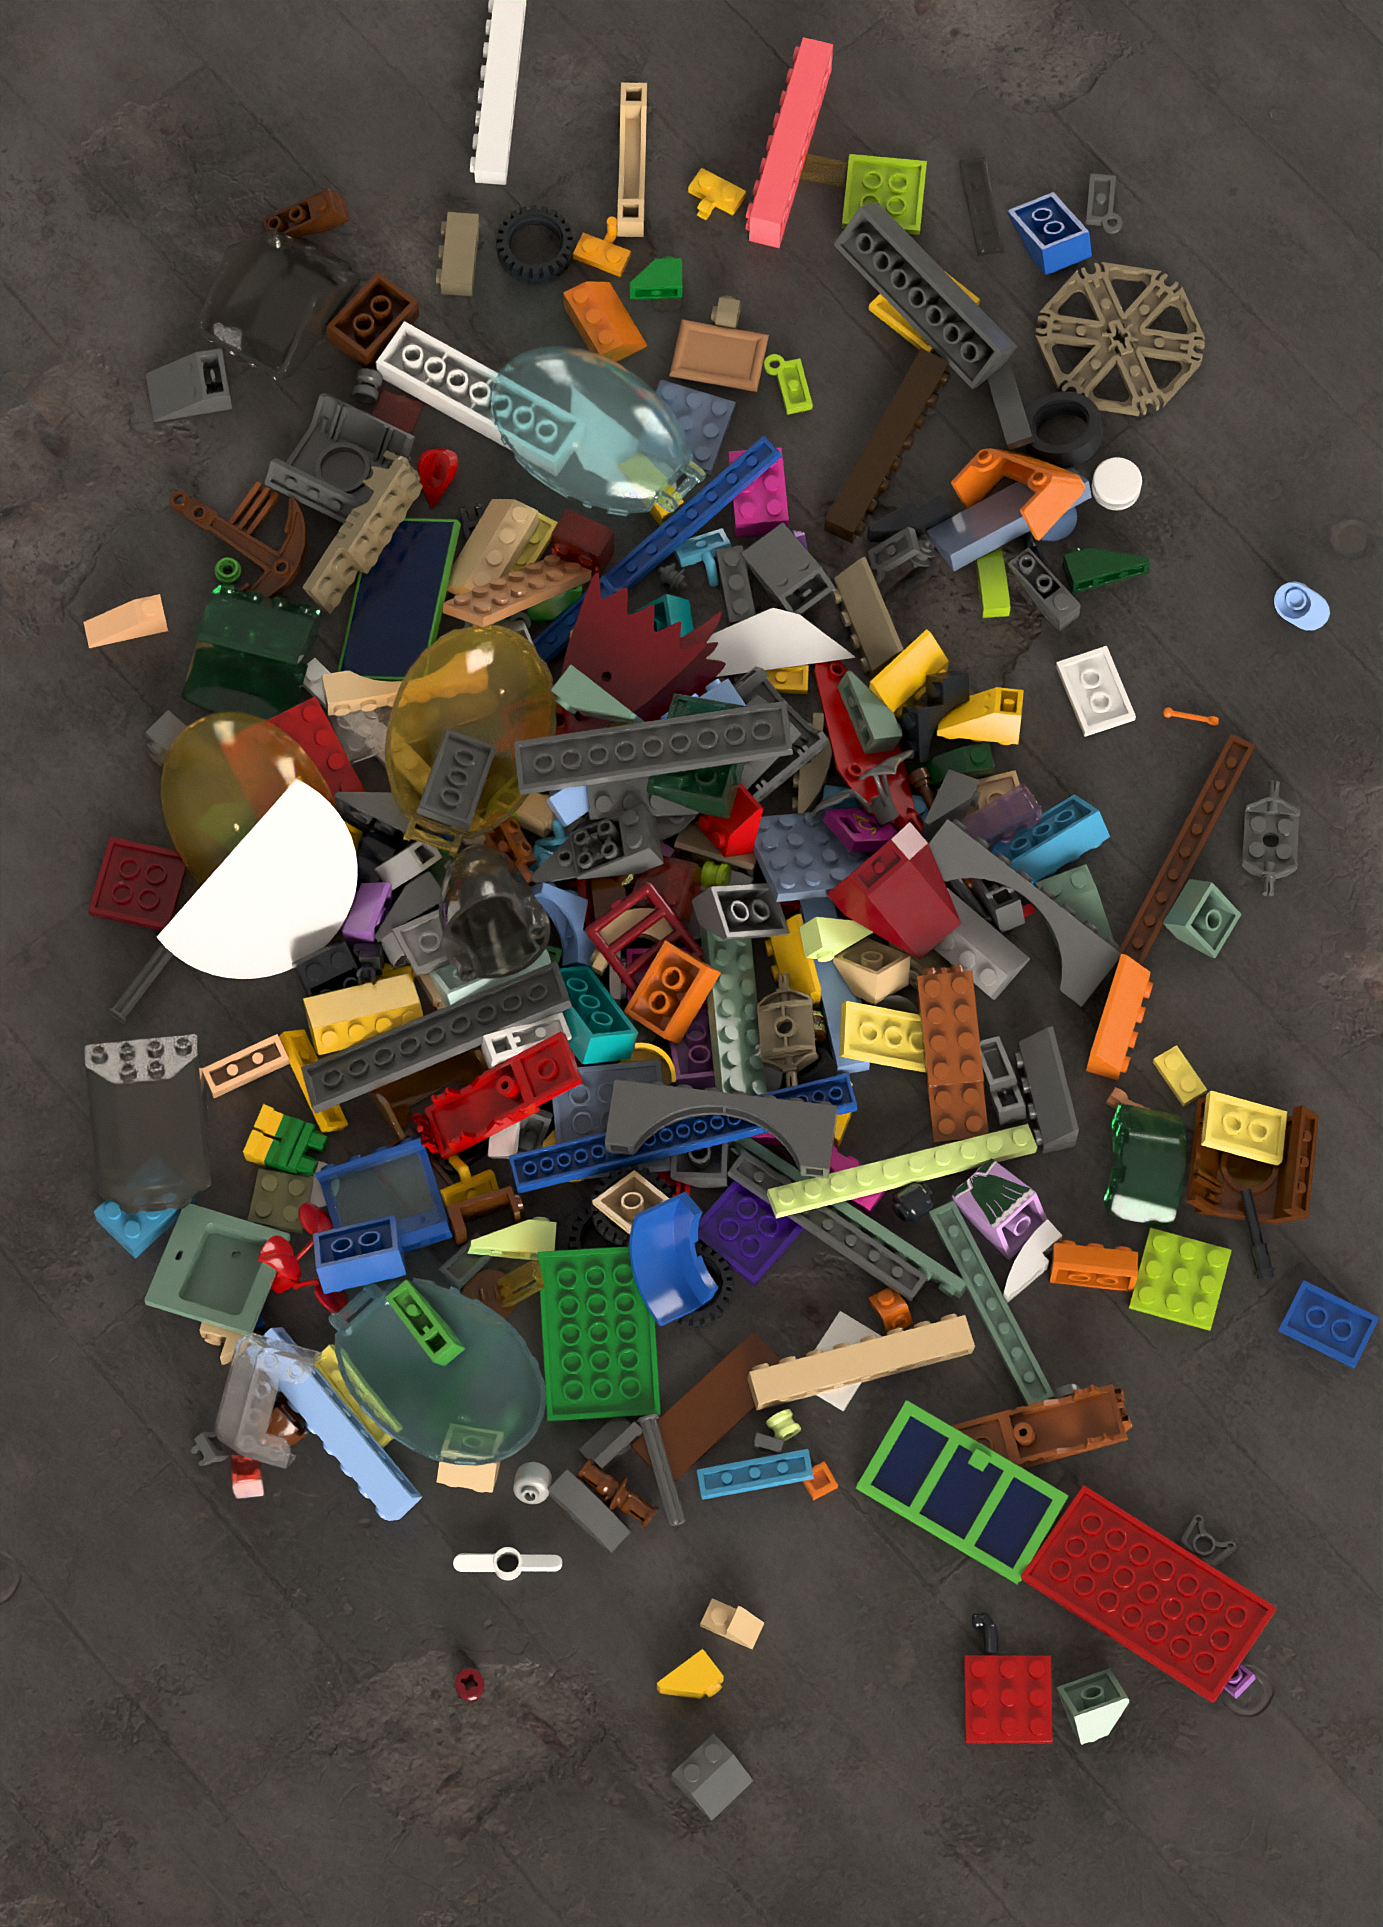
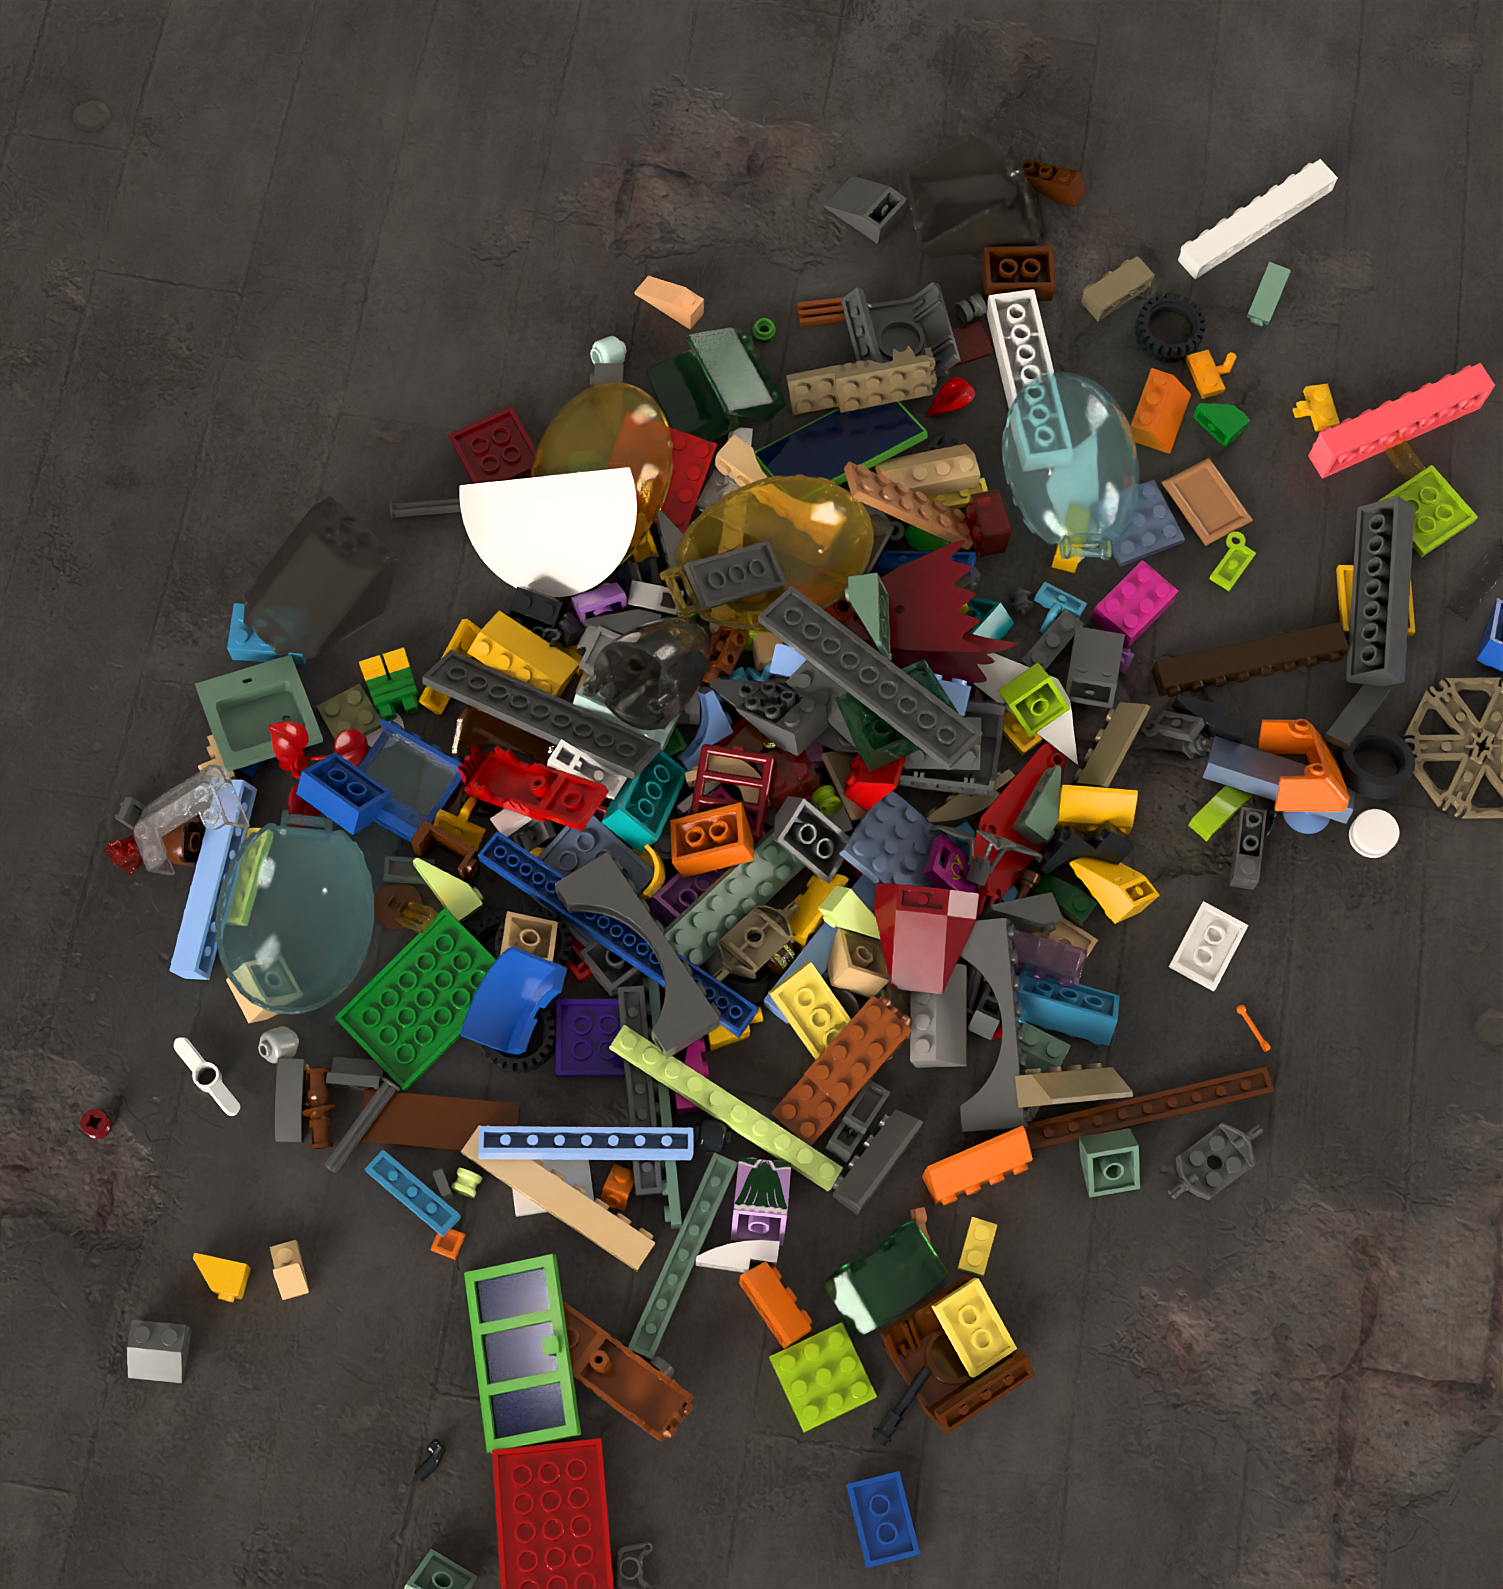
camera: 45 degrees right, 0 degrees up
(131, 715) = (608, 351): none -> light aqua head
(245, 1066) = (421, 614): light nougat brick -> none
(291, 553) = (807, 354): reddish brown piece -> none
(425, 1324) = (330, 878): bright green slope -> none
(579, 141) = (1268, 294): none -> sand green slope
(632, 160) = (1310, 320): tan arch -> none
(694, 514) = (1076, 575): blue tile -> none
(727, 312) = (1242, 481): dark tan plate -> none
(773, 641) = (1034, 699): none -> lime slope
(841, 1298) = (585, 1143): none -> light blue brick
(1008, 1699) = (392, 1520): red plate -> none
(1099, 567) = (1300, 871): dark green slope -> none
(1120, 891) = (1069, 1085): none -> dark tan slope
(1301, 606) = (1409, 1036): light blue cap -> none

